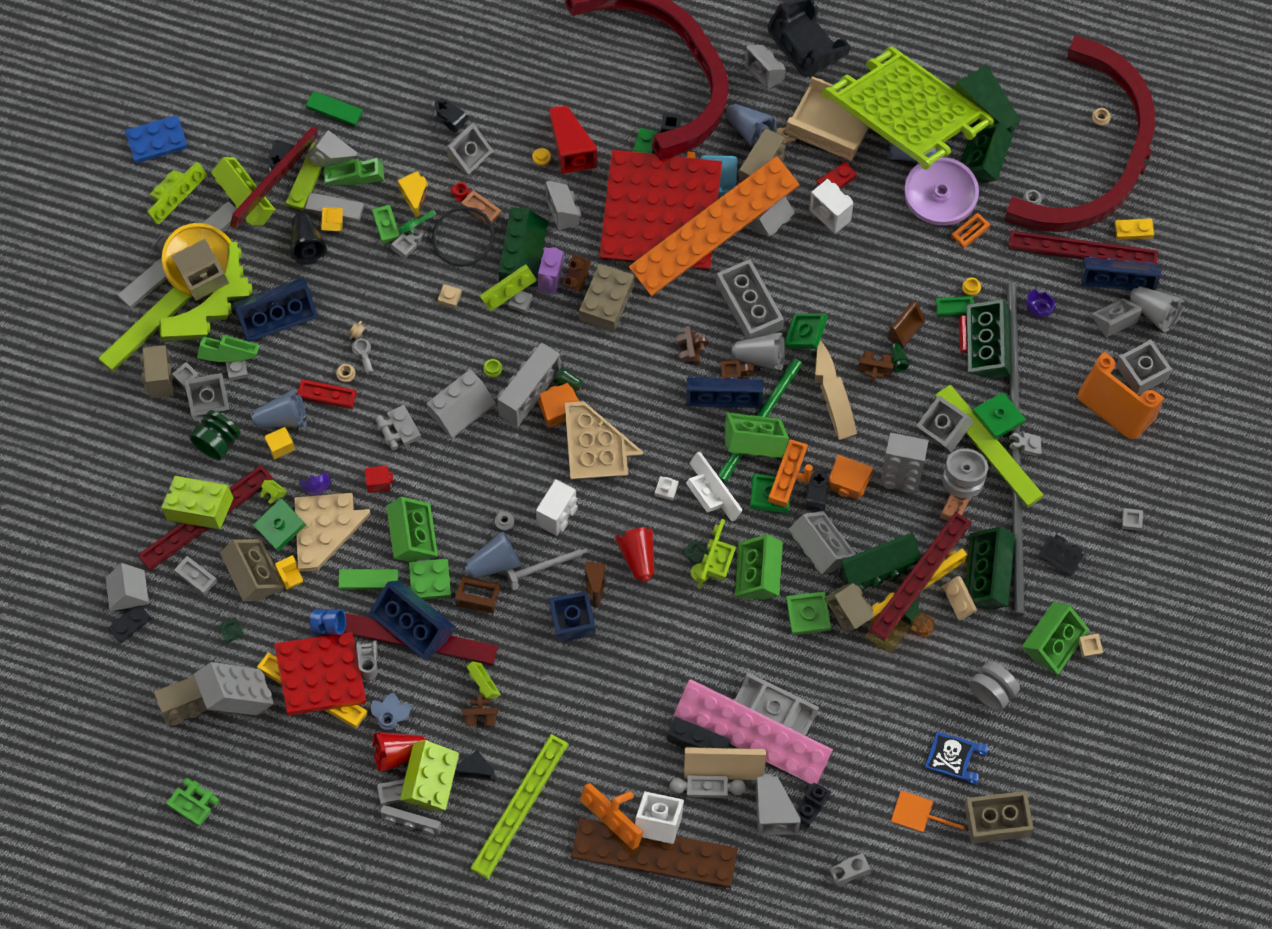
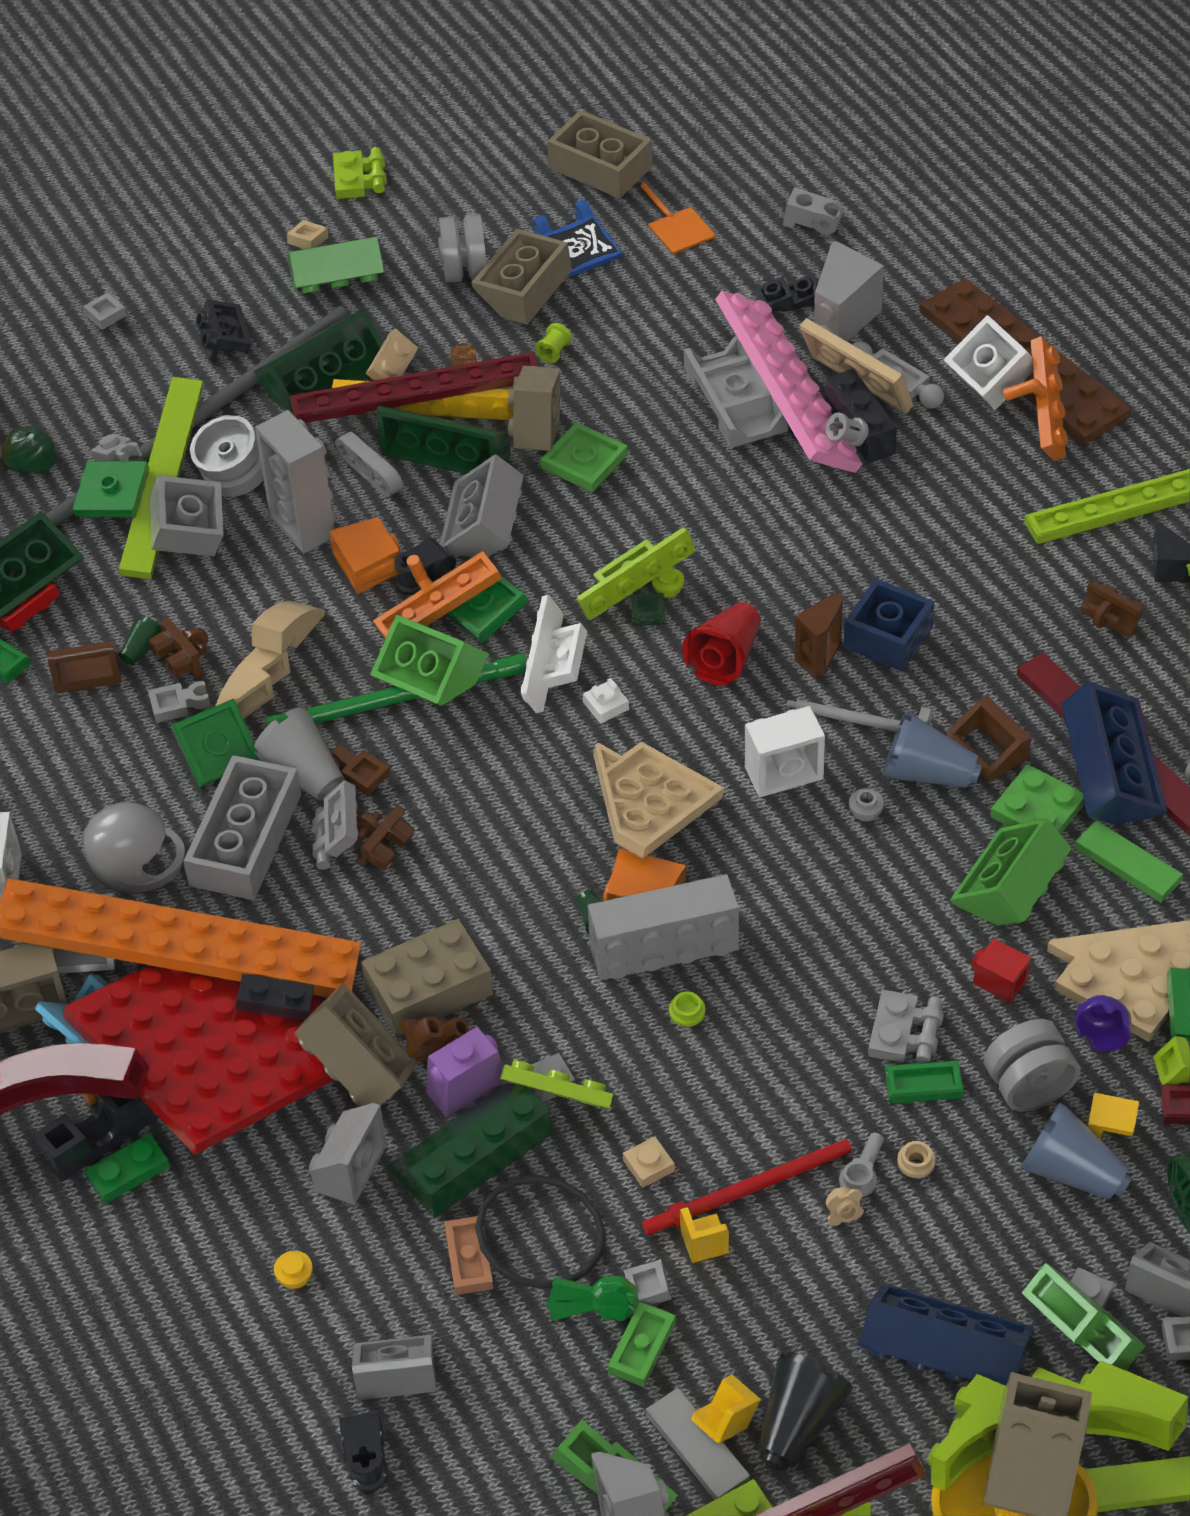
camera: 135 degrees left, 15 degrees down
(326, 434) = (1031, 1065): none -> light grey wheel
(327, 394) = (972, 1153): red tile -> none
(373, 407) = (923, 1082): none -> green tile
(400, 279) = (703, 1236): none -> yellow panel
(414, 191) = (547, 1359): yellow slope -> none
(417, 284) = (746, 1187): none -> red bar
(460, 404) = (784, 994): light grey slope -> none
(461, 186) = (472, 1301): red plate -> none
(479, 675) = (1075, 638): lime plate -> none
(572, 143) = (232, 1240): red slope -> none
(598, 239) = (356, 1048): none -> dark tan slope
(652, 236) = (274, 997): none -> black plate
(688, 709) = (847, 429): none -> light grey bush
(709, 327) = (335, 824): none -> light grey plate
(724, 392) = (407, 741): dark blue slope -> none
(759, 568) = (592, 534): bright green slope -> none
(786, 253) = (125, 839): none -> light grey piece
(849, 341) = (172, 701): none -> light grey plate
(894, 672) = (550, 346): none -> lime bush
(901, 528) = (368, 464): none -> light grey beam
(949, 696) = (523, 275): none -> dark tan slope
(1067, 414) = (28, 451): none -> dark green hair
(1120, 709) = (349, 175): none -> lime plate

